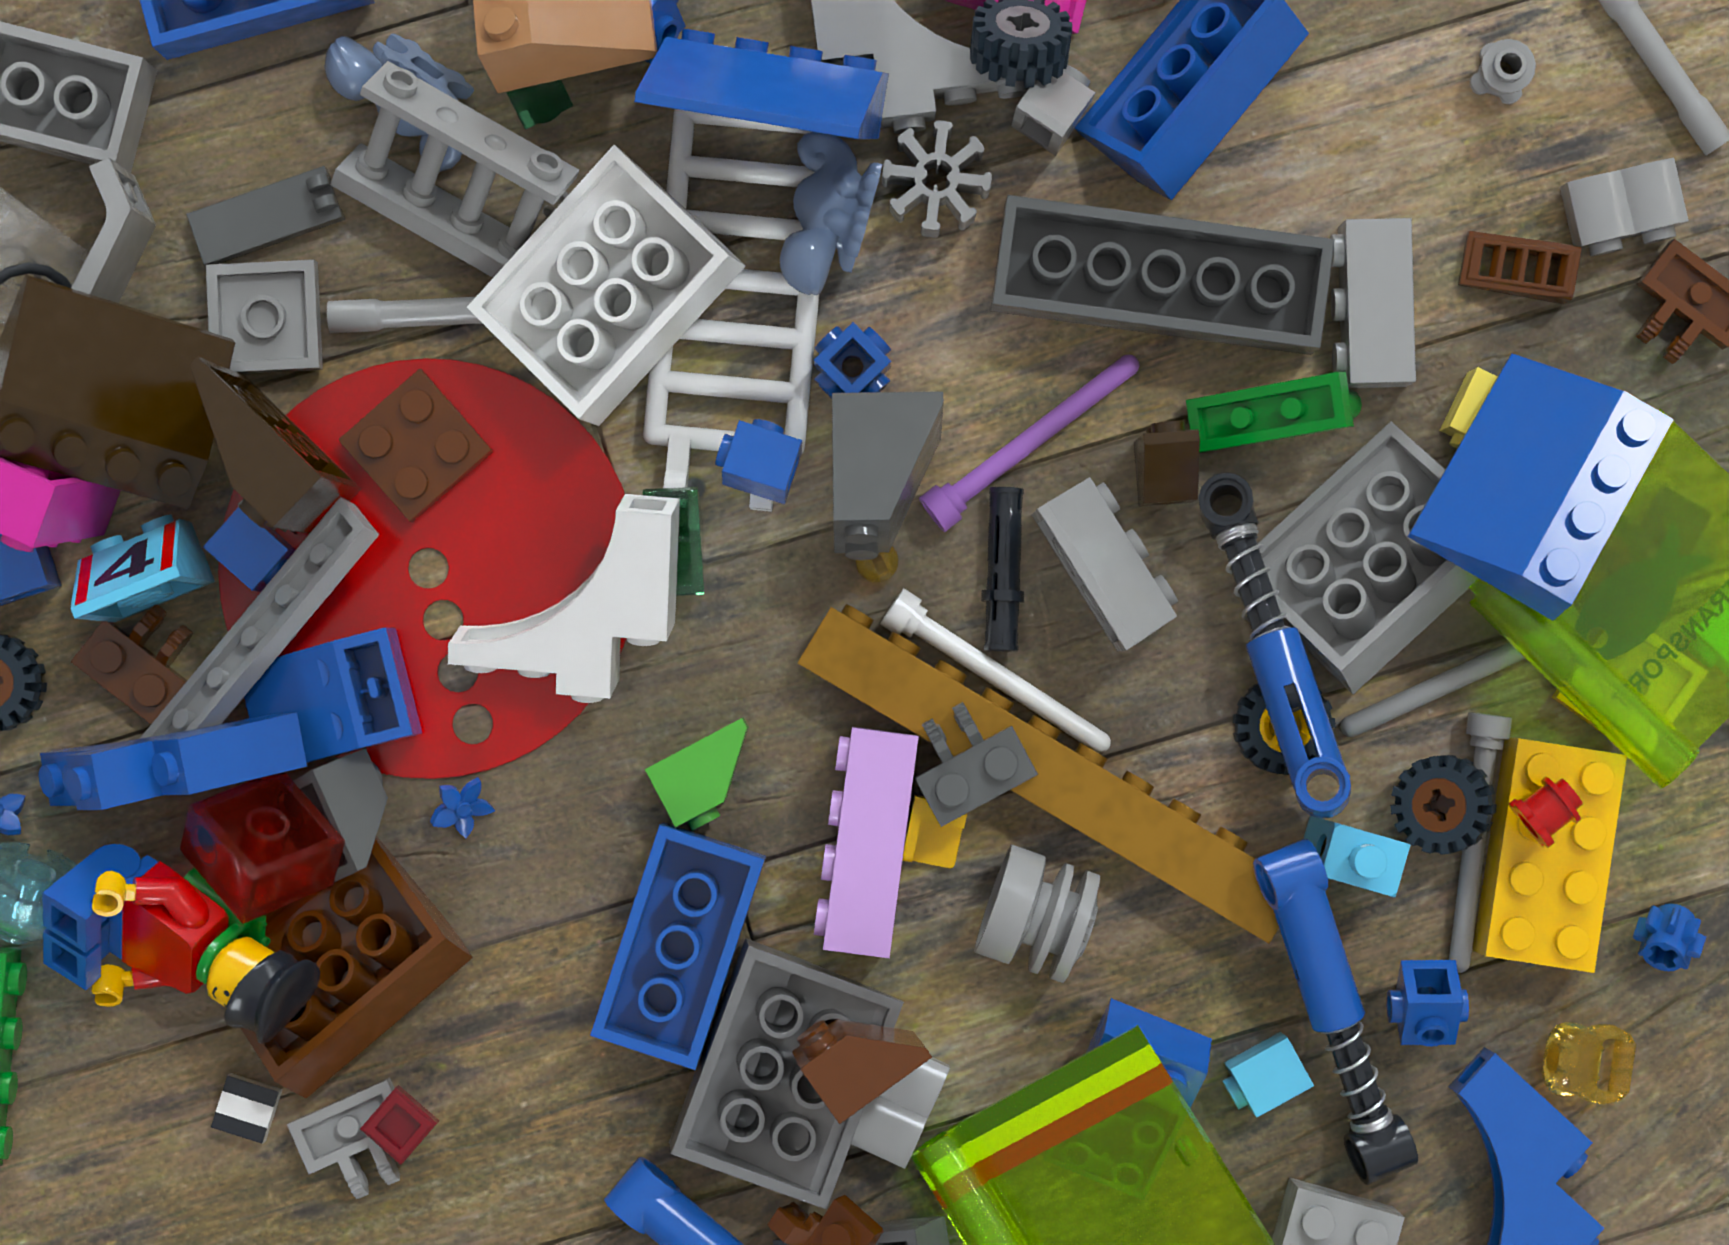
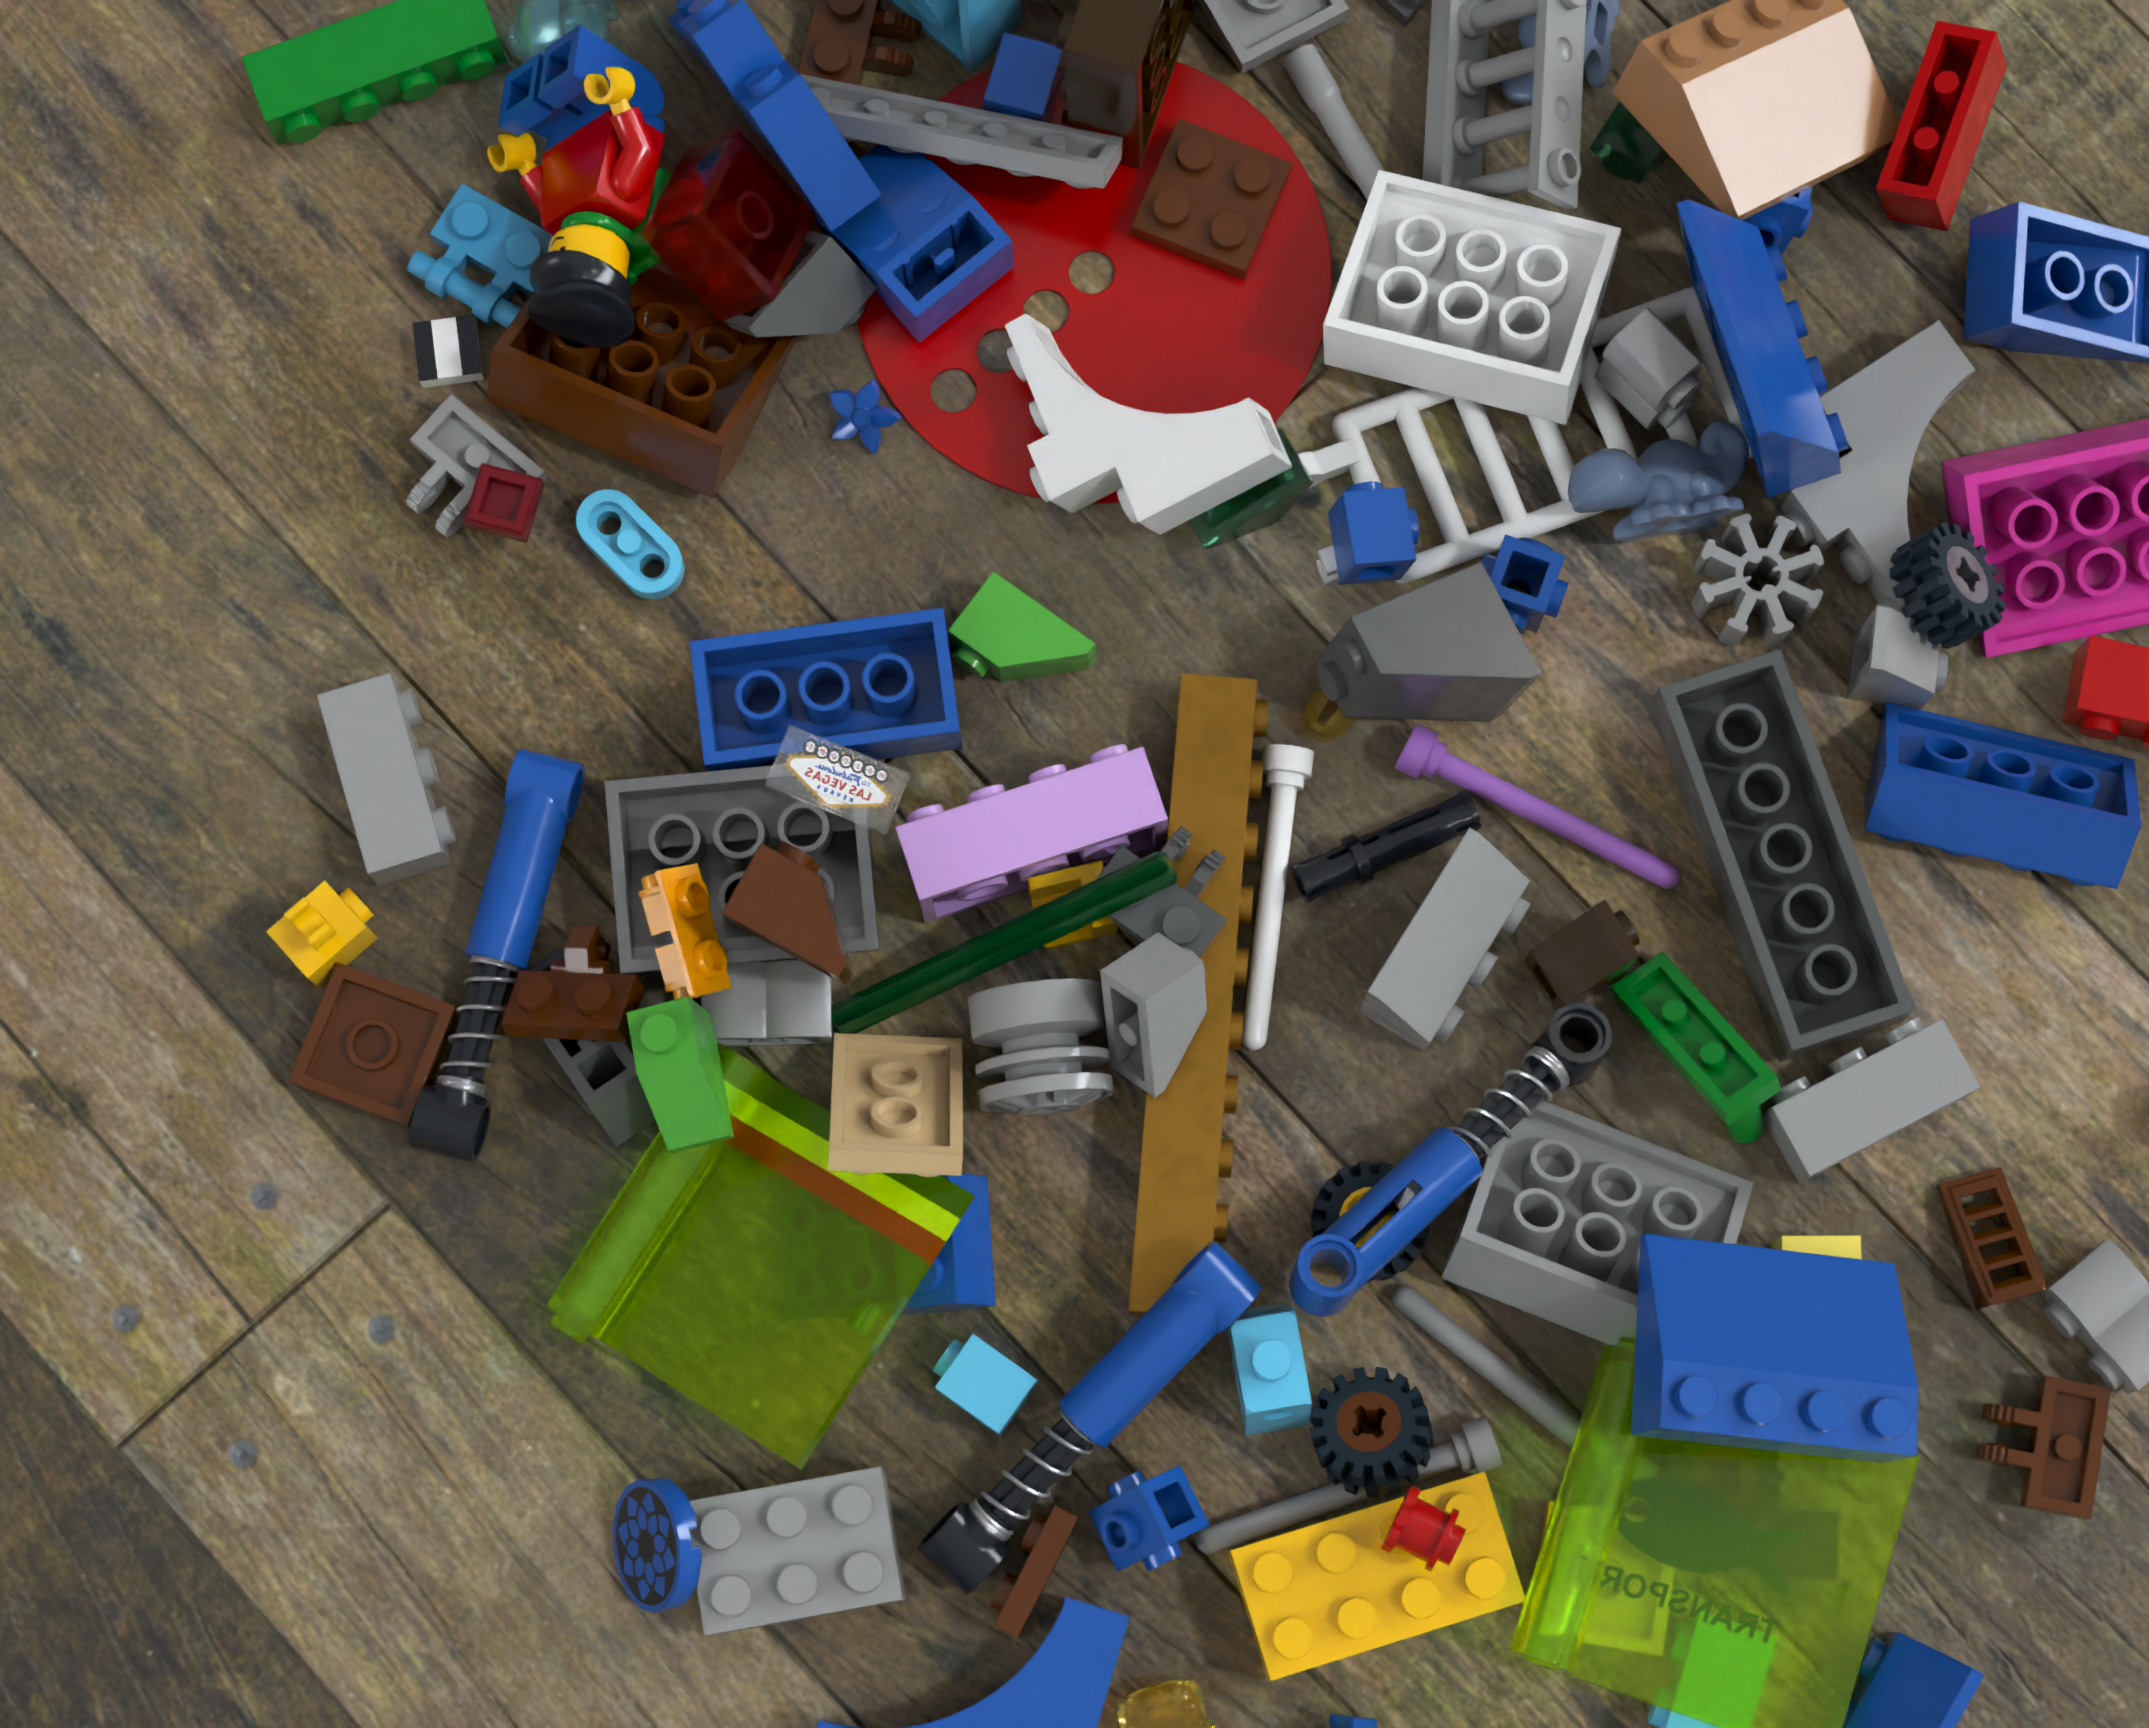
camera: 70 degrees right, 10 degrees down
(170, 1030) = (490, 238): none -> dark azure plate
(479, 1038) = (632, 546): none -> medium azure plate
(741, 180) = (1650, 371): none -> light grey brick
(759, 974) = (837, 779): none -> clear tile
(845, 1149) = (680, 903): none -> light orange hinge
(929, 1200) = (681, 1072): none -> bright green slope
(946, 902) = (1004, 943): none -> dark green axle
(1032, 1046) = (896, 1105): none -> tan plate
(1057, 817) = (1152, 1010): none -> light grey slope
(1435, 1123) = (1019, 1595): none -> reddish brown plate

